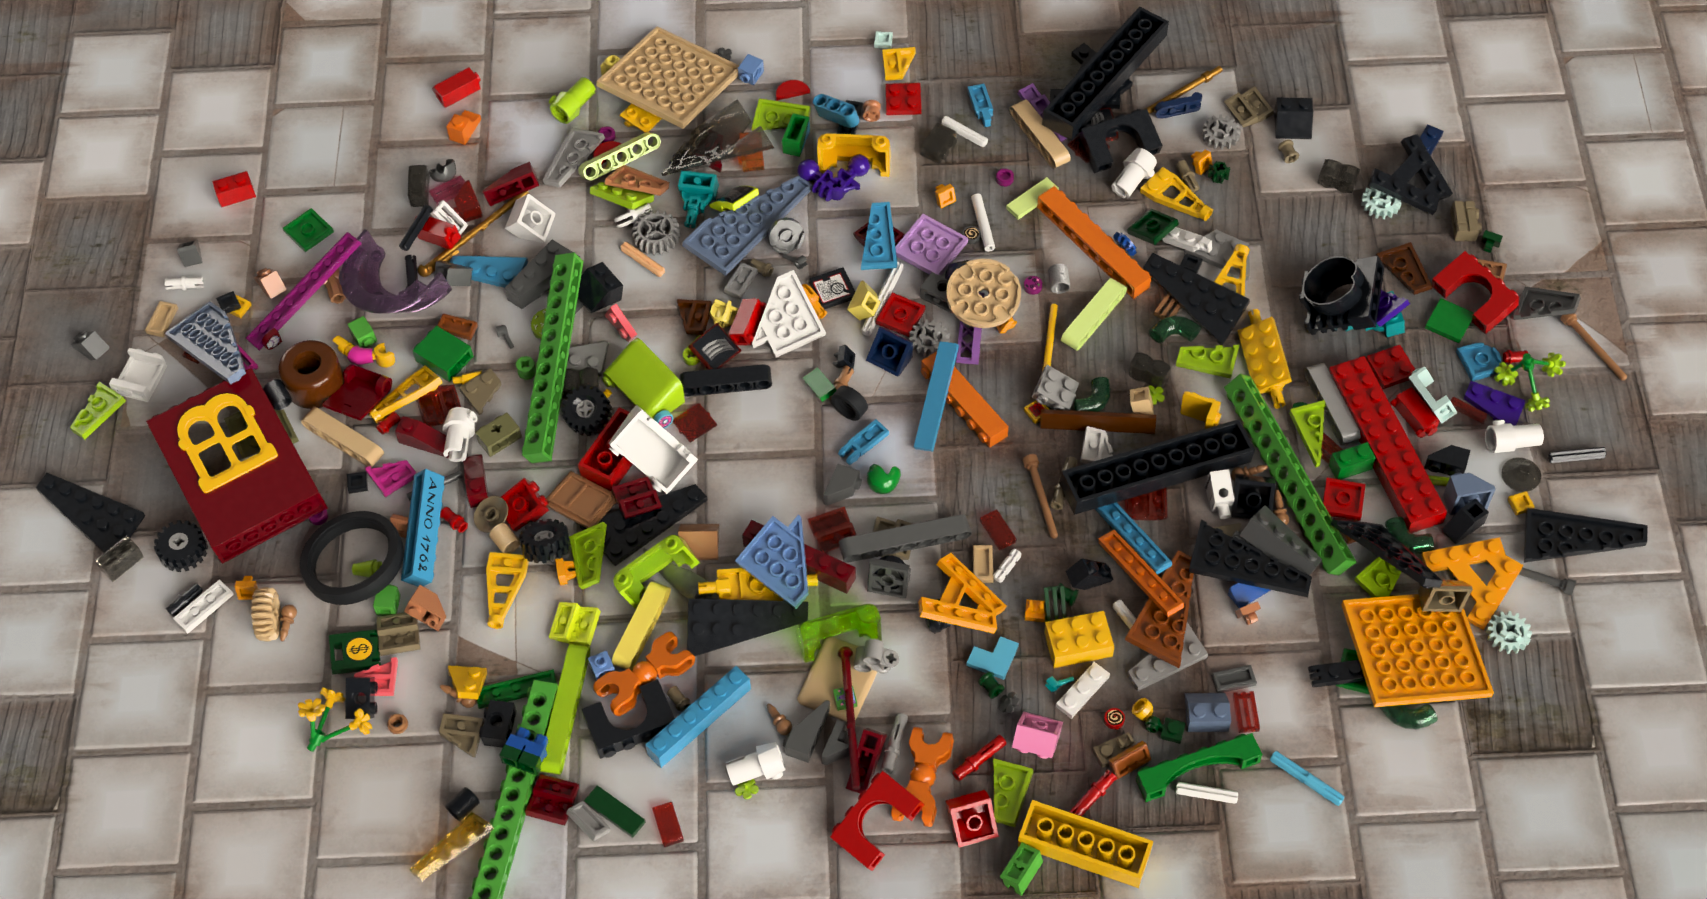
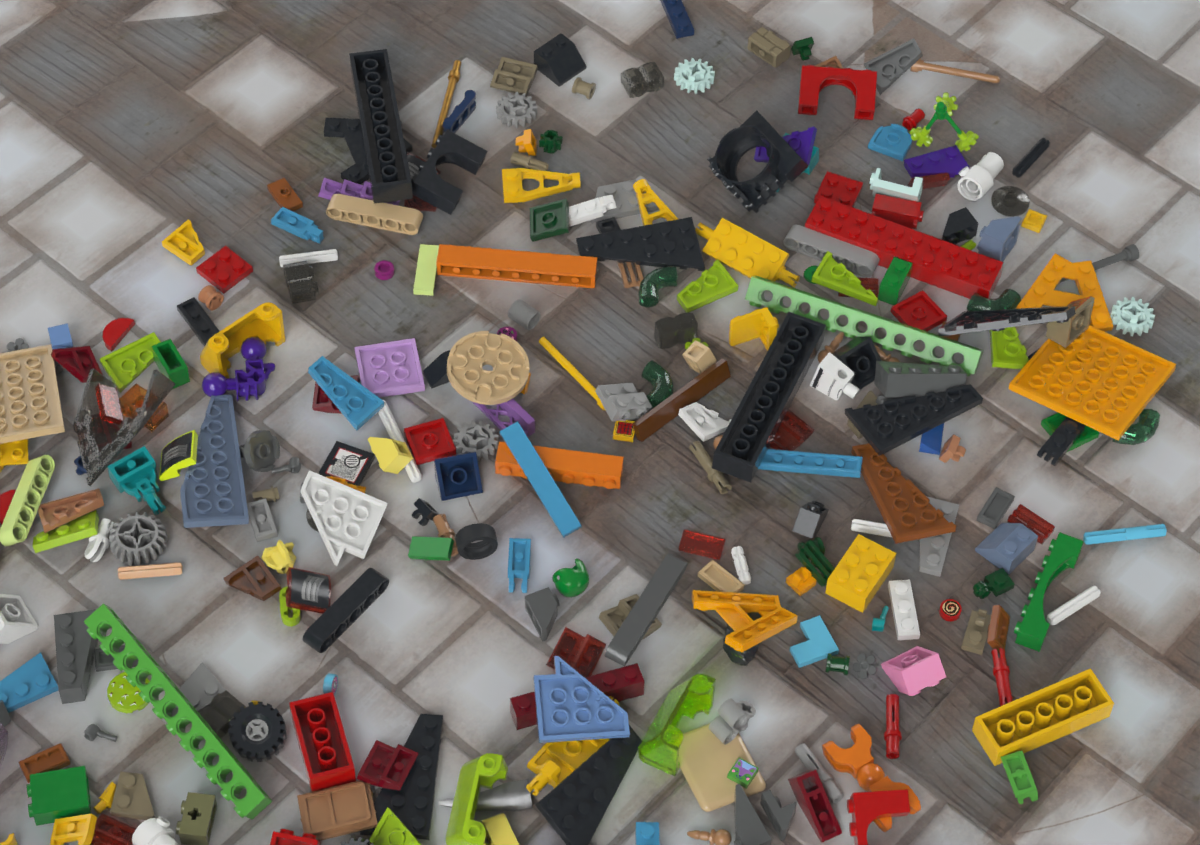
camera: 50 degrees left, 5 degrees down
(526, 372) = (158, 744): bright green wheel -> none
(599, 288) = (146, 621): black slope -> none
(620, 322) = (197, 636): coral wing -> none
(644, 379) = (279, 663): lime windscreen -> none
(652, 450) = (363, 711): white windscreen -> none
(694, 422) = (357, 666): clear red piece -> none
(701, 539) = (475, 745): medium nougat slope -> none
(728, 131) = (109, 404): none -> clear red tile
(745, 90) = (77, 361): none -> dark red wing
(747, 321) = (309, 546): red brick -> none
(836, 110) = (182, 318): dark azure beam -> none
(845, 654) = (703, 738): dark red bar -> none
(883, 40) = (149, 234): light aqua tile -> none
(889, 576) = (669, 647): dark grey piece -> none
(931, 291) = (441, 399): dark grey brick -> none
(945, 195) = (354, 319): light orange tile -> none
(972, 818) = (941, 774): red slope -> none
(973, 234) = (411, 332): tile -> none
(983, 223) = (409, 318): white piece -> none
(997, 77) = (284, 195): none -> dark orange plate
(1010, 789) = (942, 729): lime wing -> none
(1031, 464) = (669, 473): medium nougat piece -> none
(1094, 314) = (582, 321): yellowish green beam -> none
(1124, 242) = (545, 246): blue gear -> none
(1137, 166) = (487, 181): white piece -> none
(1141, 573) = (850, 483): orange plate -> none
(1142, 709) = (962, 584): yellow tile -> none
(1397, 183) = (695, 28): black plate -> none
(1406, 267) = (774, 111): reddish brown wing -> none
(1449, 320) = (839, 128): green tile -> none
(1466, 521) = (1018, 261): black slope -> none
(1565, 535) = (1090, 217): black wing -> none

